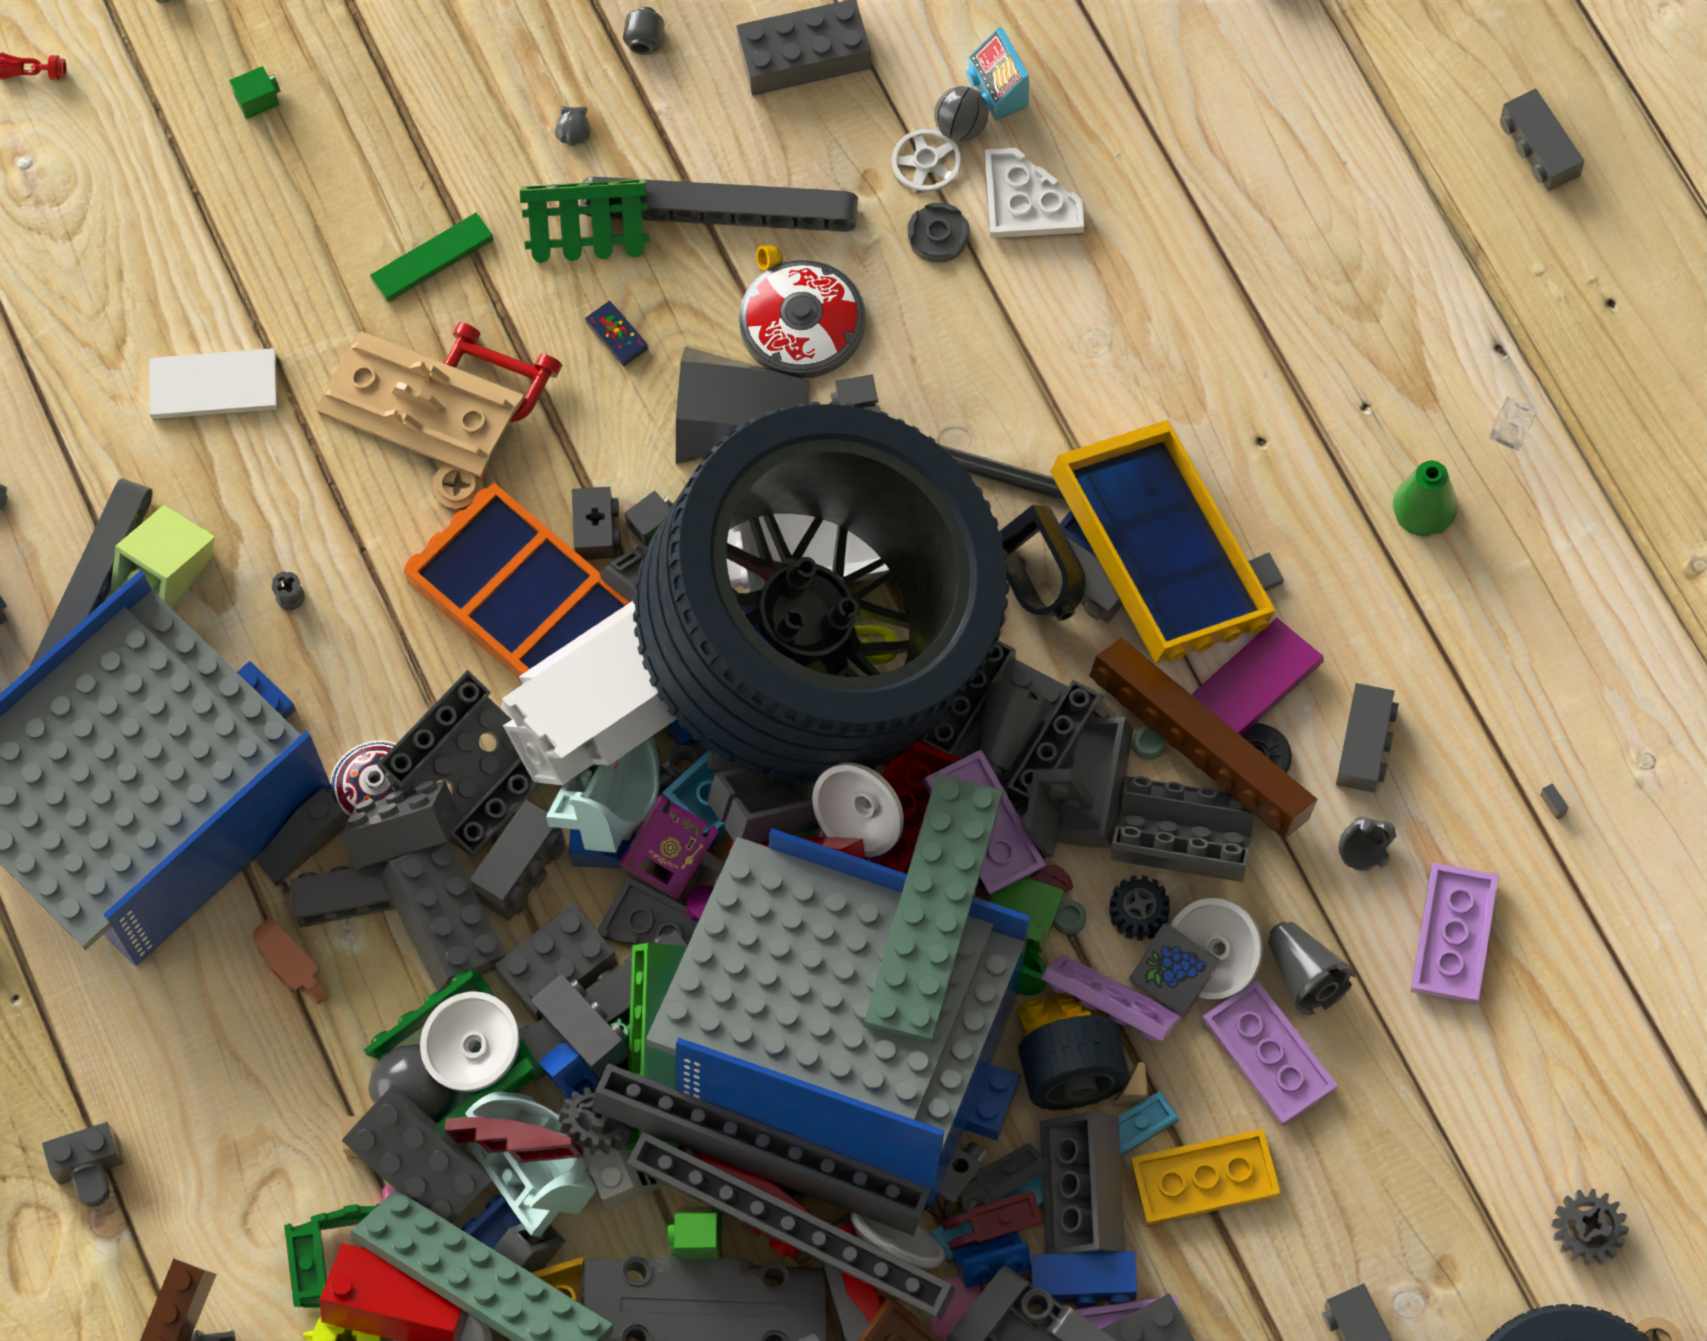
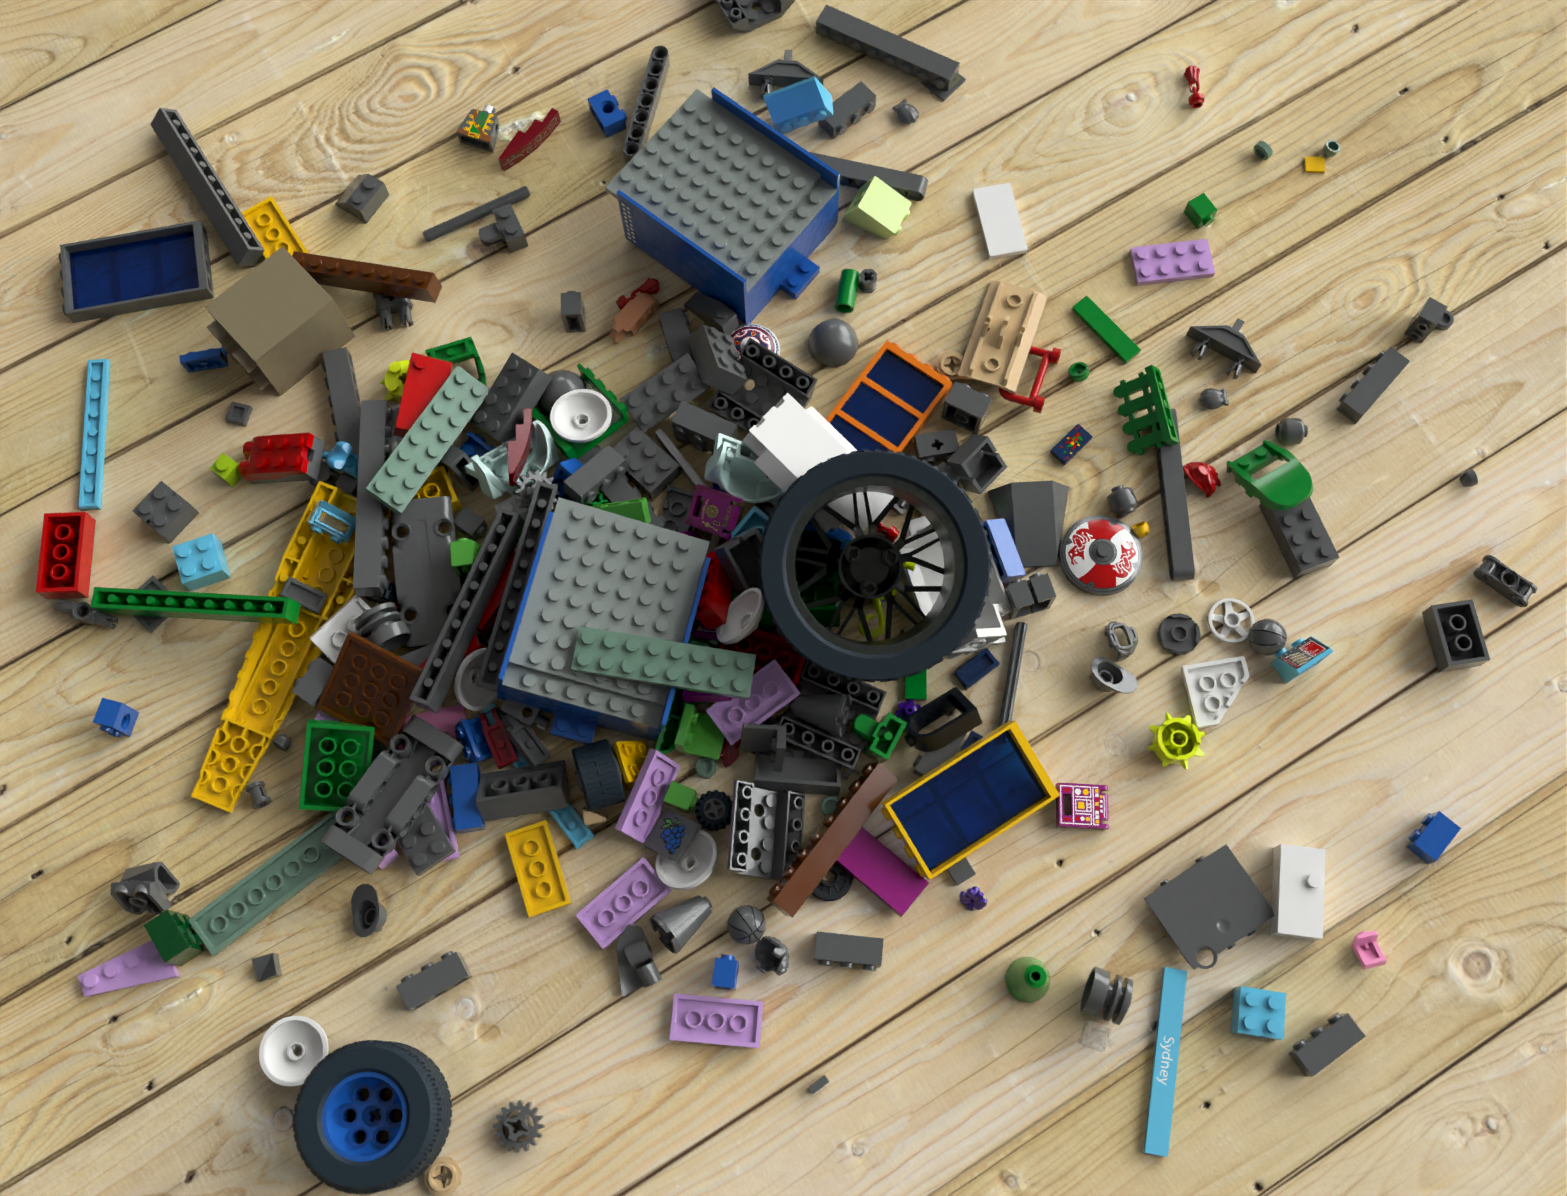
camera: 80 degrees right, 5 degrees up
(39, 1214) = (475, 214): none -> dark grey axle
(235, 932) = (650, 286): none -> red piece
(267, 1052) = (573, 312): none -> dark grey brick
(299, 624) = (847, 290): none -> green pin
(332, 148) = (1172, 262): none -> lavender plate
(388, 657) = (833, 342): none -> dark grey cylinder
(487, 88) = (1227, 342): none -> dark grey connector
(498, 304) = (1078, 372): none -> green tile
(539, 467) = (966, 407): none -> dark grey brick
(582, 897) = (675, 454): none -> light grey tile
(622, 1243) = (470, 524): none -> dark grey brick
(636, 462) = (977, 463): none -> dark grey piece
(696, 160) = (1202, 476): none -> red hat
(721, 274) = (1122, 500): none -> dark grey head
(743, 52) = (1281, 487): none -> green slope
(935, 290) = (1131, 635): none -> dark grey helmet
(996, 327) = (1110, 677): none -> dark grey piece
(1017, 618) = (904, 708): none -> dark purple plant
(1051, 653) = (881, 735): none -> green brick
(1102, 256) = (1180, 730): none -> neon yellow brick
(1115, 953) = (681, 797): none -> bright green brick
(1184, 389) = (1087, 806): none -> magenta container
(1305, 559) = (973, 898): none -> dark purple plant
(1319, 873) = (746, 924): none -> dark grey piece
(1333, 139) = (1298, 892): none -> white brick
(1341, 253) = (1209, 906): none -> dark grey piece
(1358, 1039) = (635, 961): none -> dark grey panel
(1389, 906) = (725, 972): none -> blue brick
(1419, 67) = (1368, 950): none -> bright pink bracket
(1459, 399) = (1111, 997): none -> dark grey wheel
(1494, 215) = (1258, 1013): none -> medium azure brick
(1549, 344) = (1165, 1062): none -> medium azure tile

